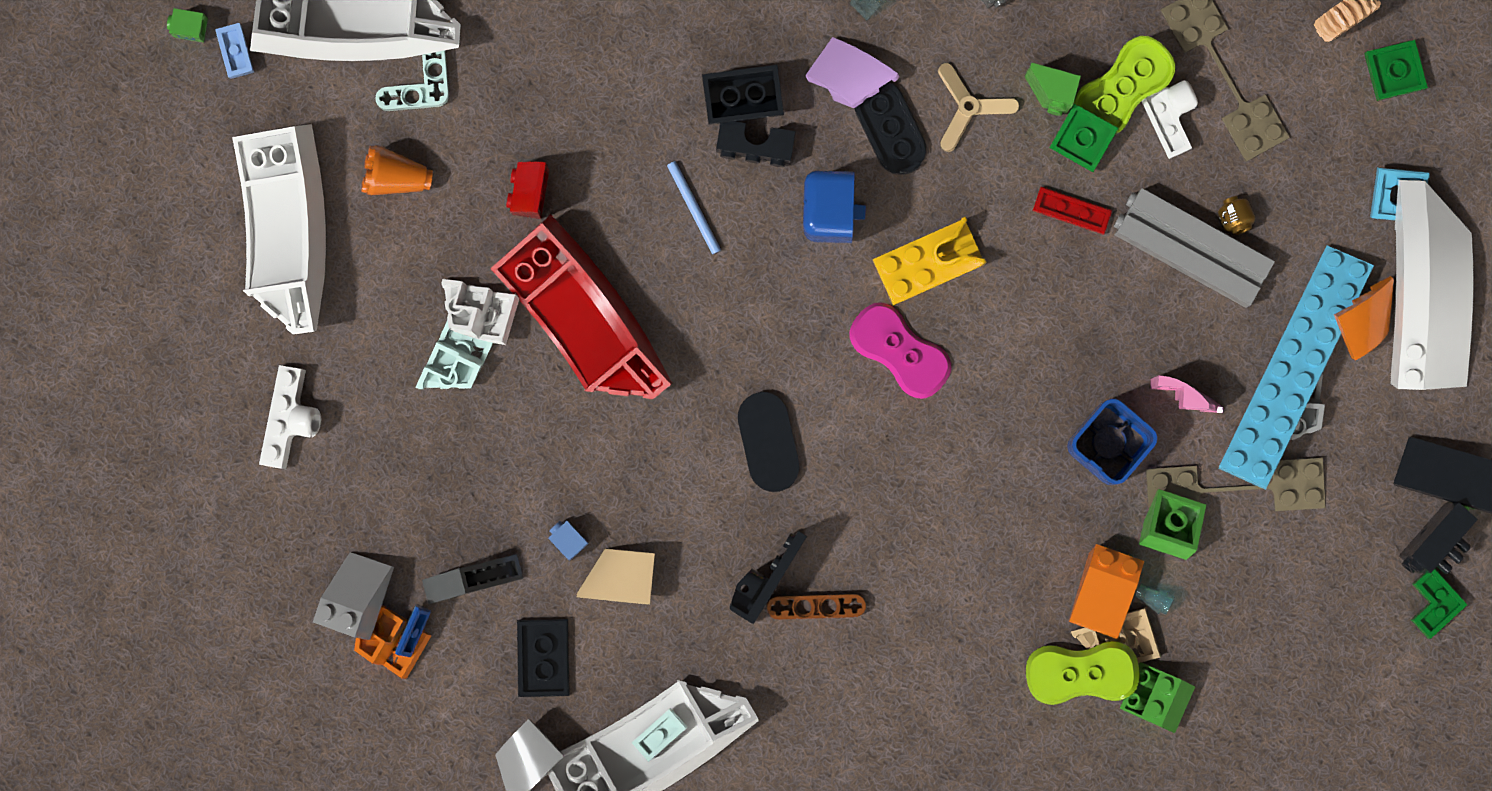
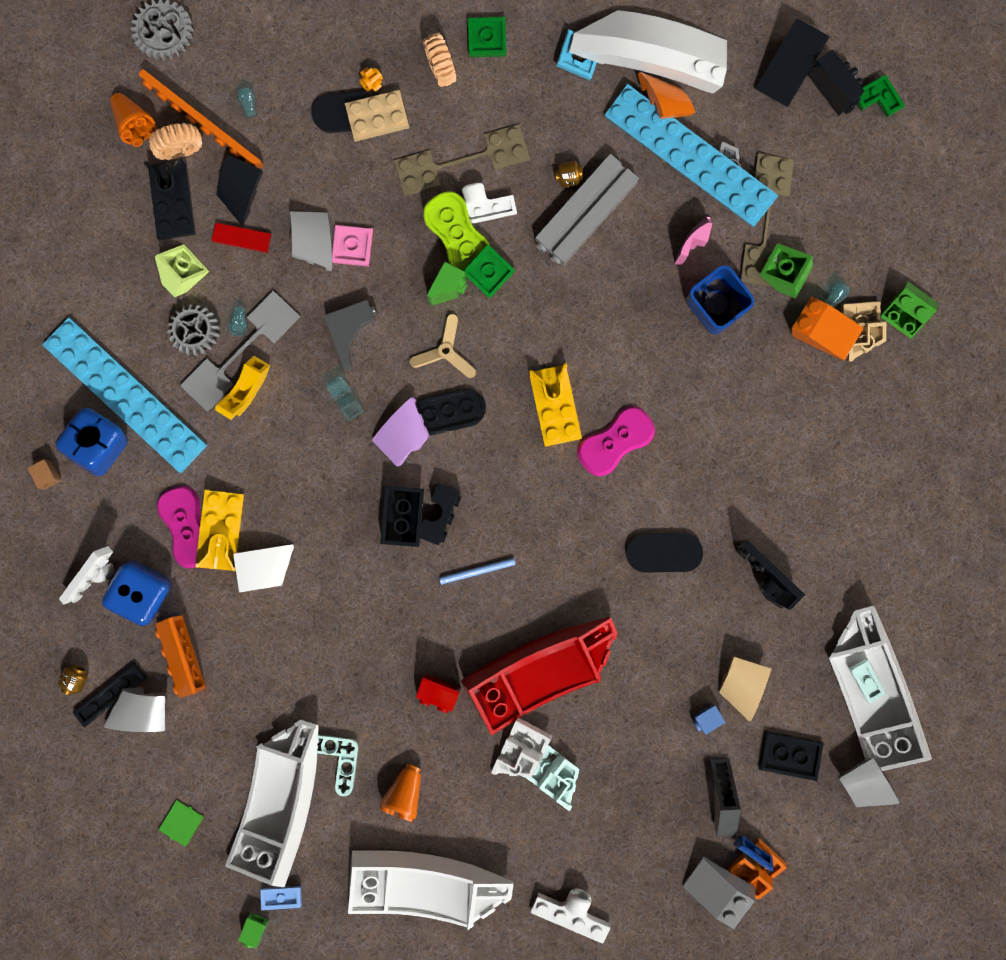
camera: 75 degrees left, 0 degrees up
(816, 609) = (796, 544): dark orange beam -> none
(830, 206) = (501, 468): blue piece -> none
(1063, 674) = (883, 344): lime plate -> none
(1072, 210) = (539, 292): red tile -> none

